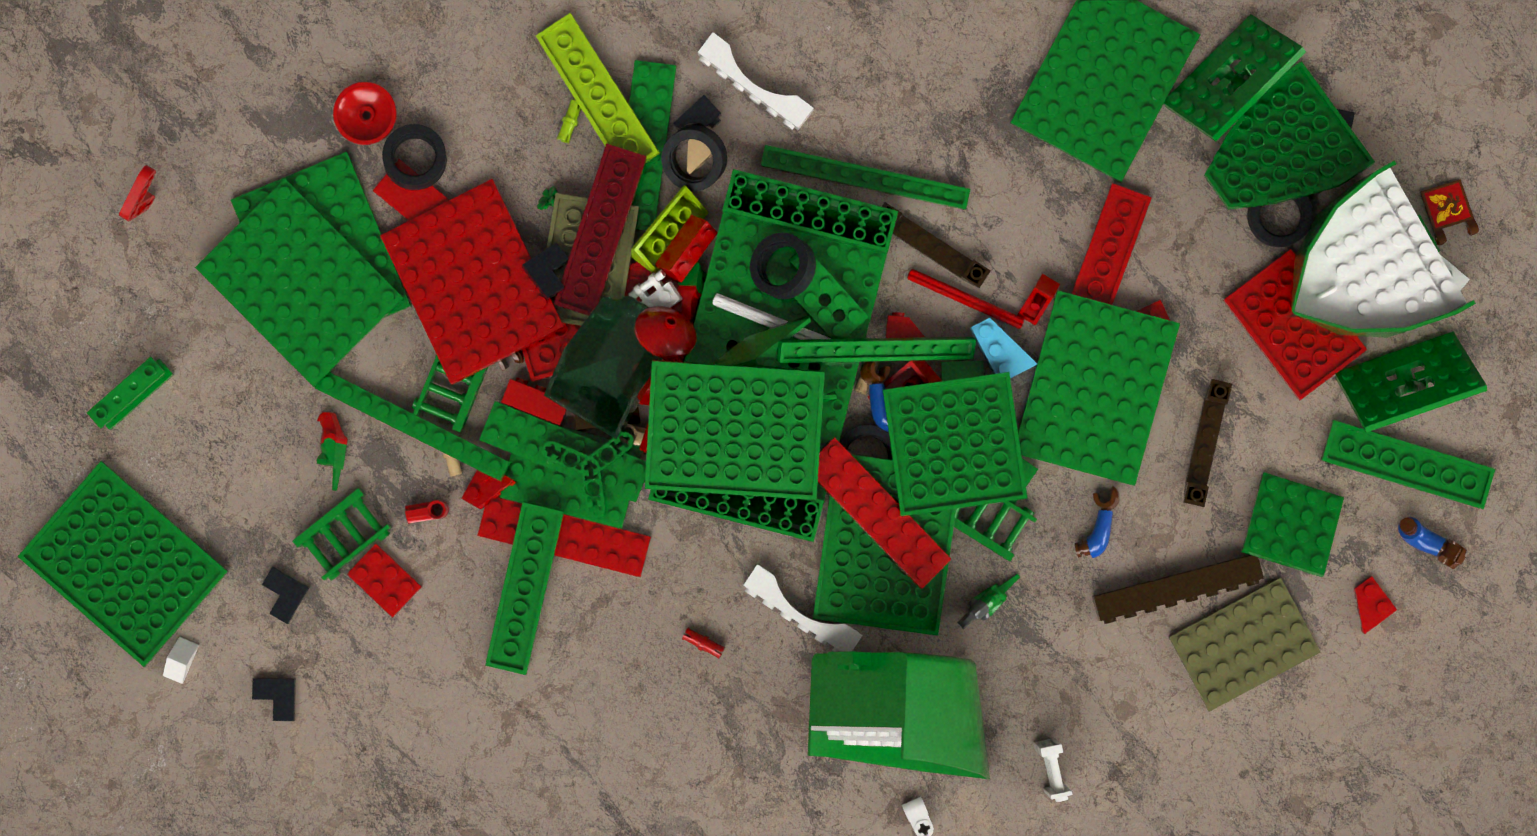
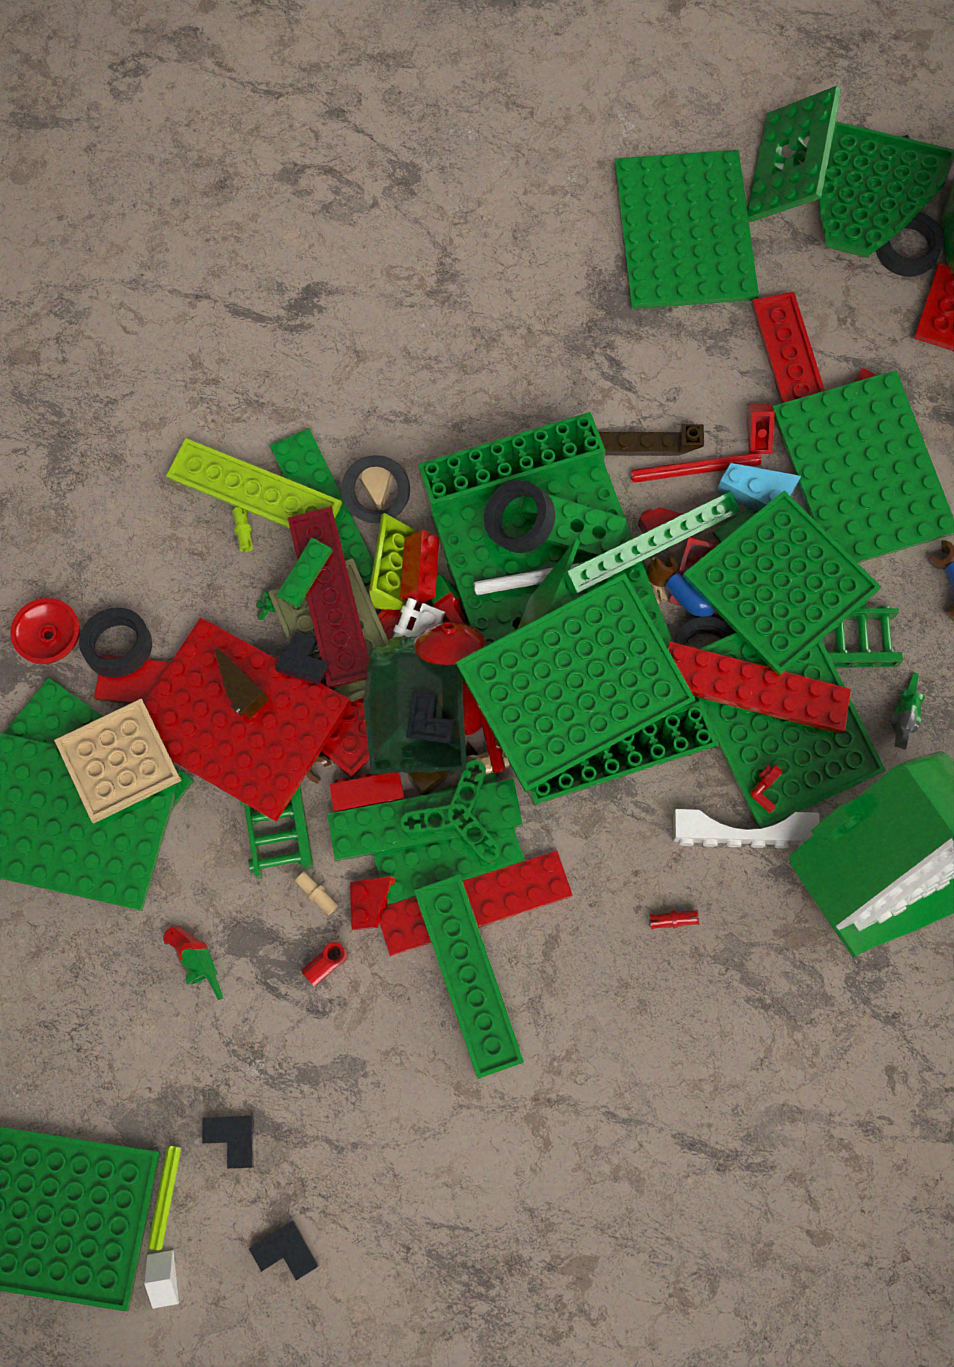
camera: 35 degrees left, 15 degrees down
(213, 605) = (164, 1198): none -> lime axle
(339, 513) = (239, 1020): green fence -> none
(360, 261) = (117, 760): none -> tan plate
(384, 580) = (324, 1059): red plate -> none
(413, 425) = (262, 887): green plate -> none
(485, 265) = (240, 689): none -> dark brown slope
(591, 200) = (304, 573): none -> green plate
(608, 379) = (423, 724): none -> black tile
(701, 113) = (356, 448): black arch -> none
(790, 107) = (433, 403): white arch -> none
(843, 585) = (769, 776): none -> red plate
(865, 177) = (590, 401): green plate -> none

